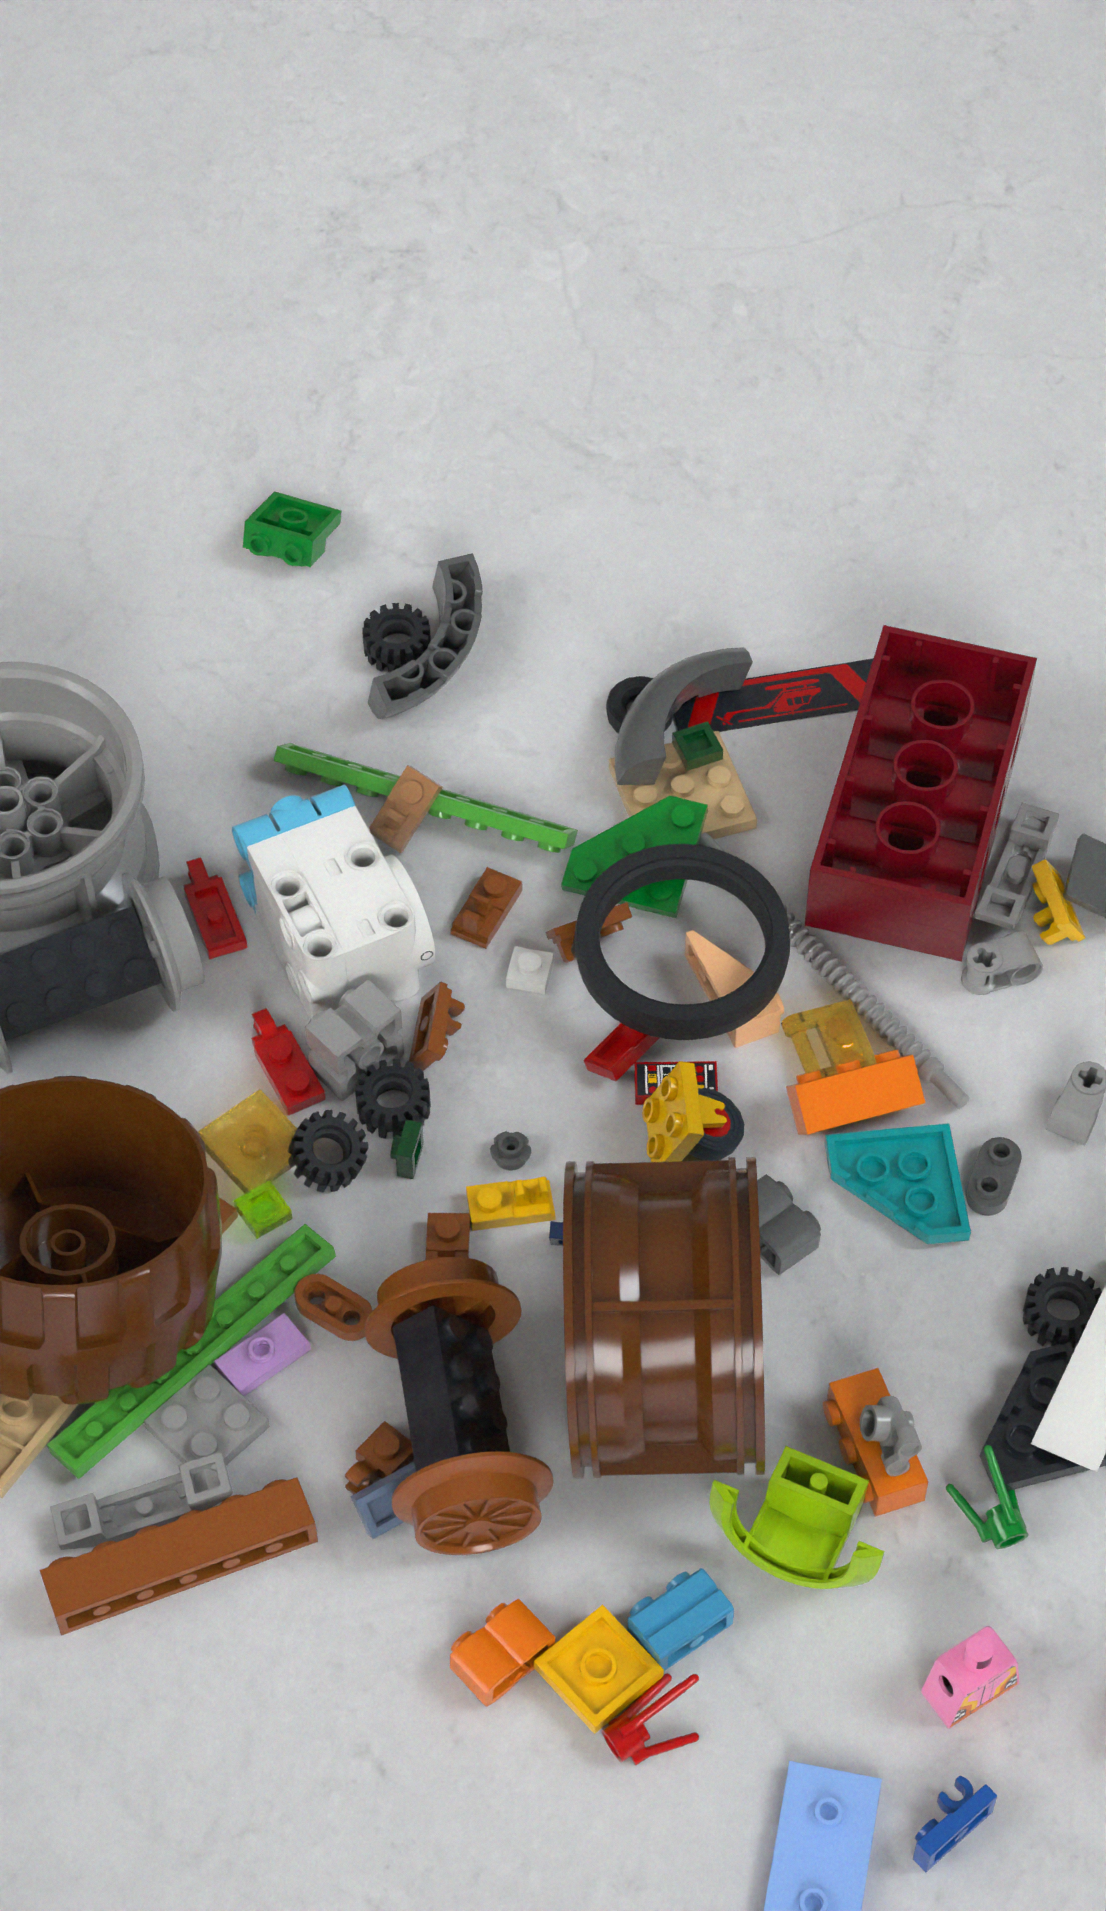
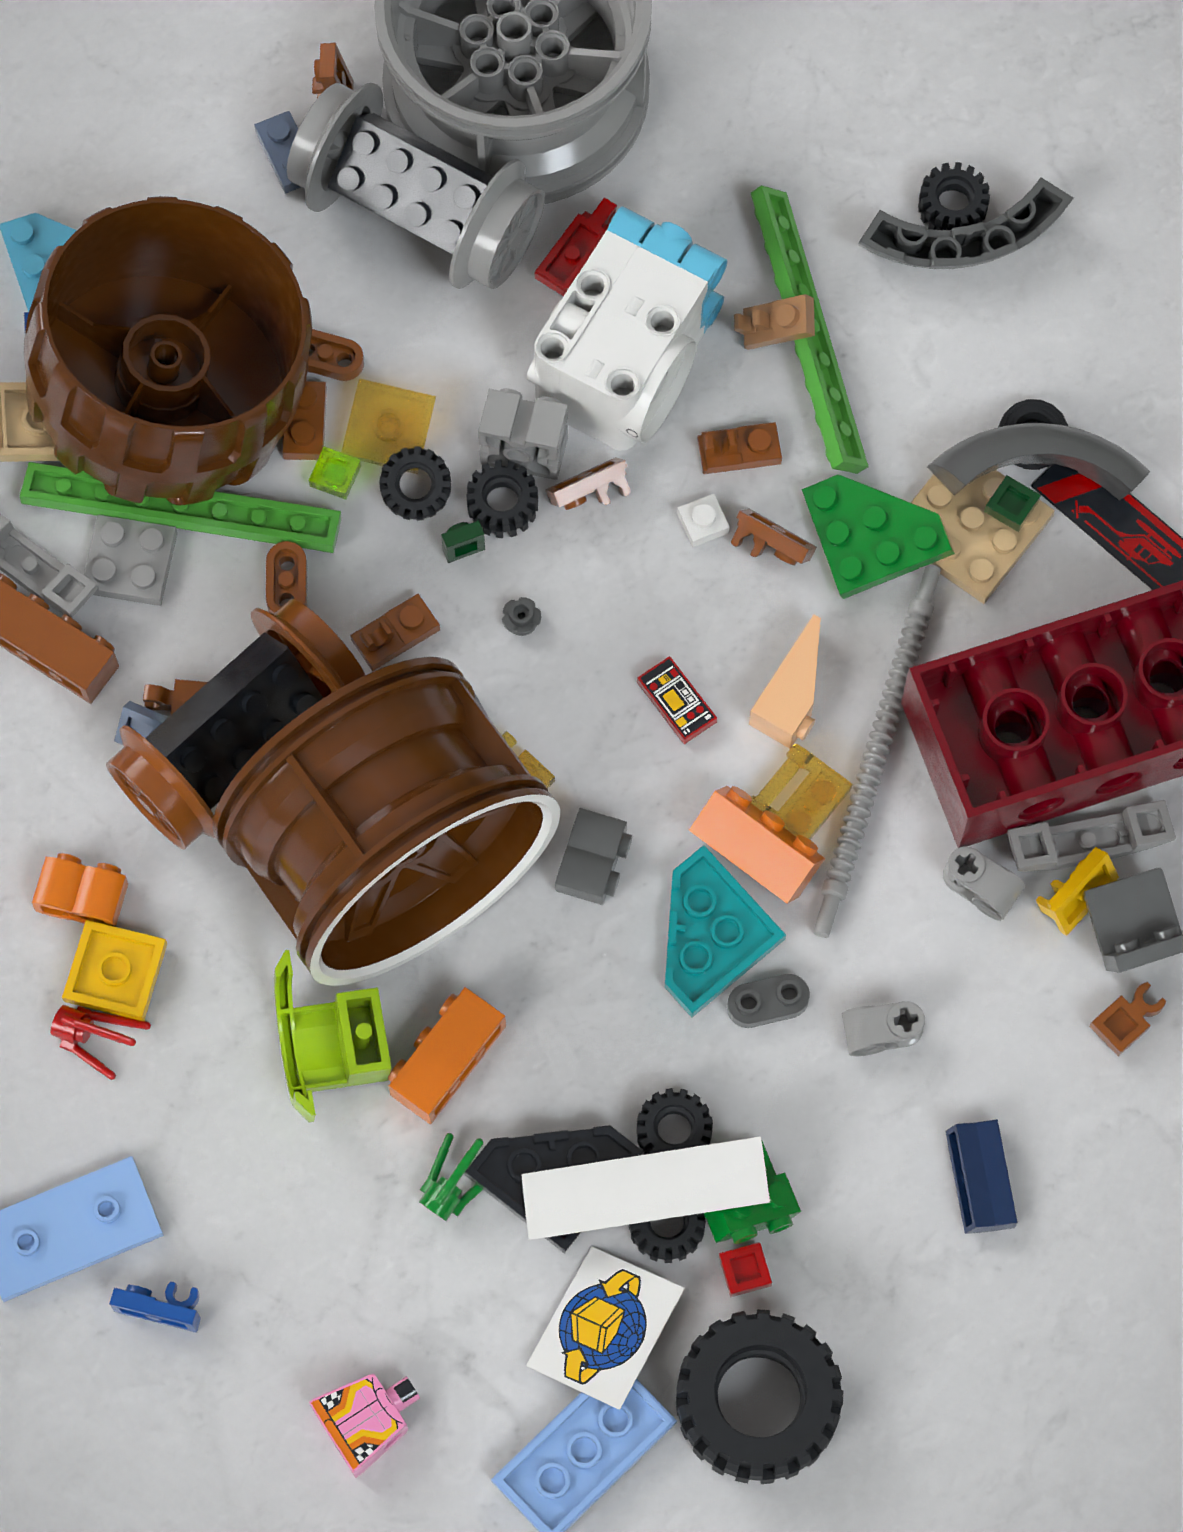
camera: 55 degrees right, 15 degrees up
(262, 1355) = (213, 559): lavender plate -> none
(285, 1064) = (465, 413): red hinge -> none
(290, 529) = (1000, 42): green plate -> none
(510, 1203) = (474, 648): yellow plate -> none
(618, 1052) = (682, 638): red tile -> none
(680, 1618) = (192, 1003): dark azure brick -> none
(682, 1020) = (804, 529): black tyre -> none
(690, 1119) = (640, 741): yellow plate -> none
(894, 1431) = (447, 1054): light grey plate -> none
(978, 1672) = (290, 1249): bright pink torso -> none

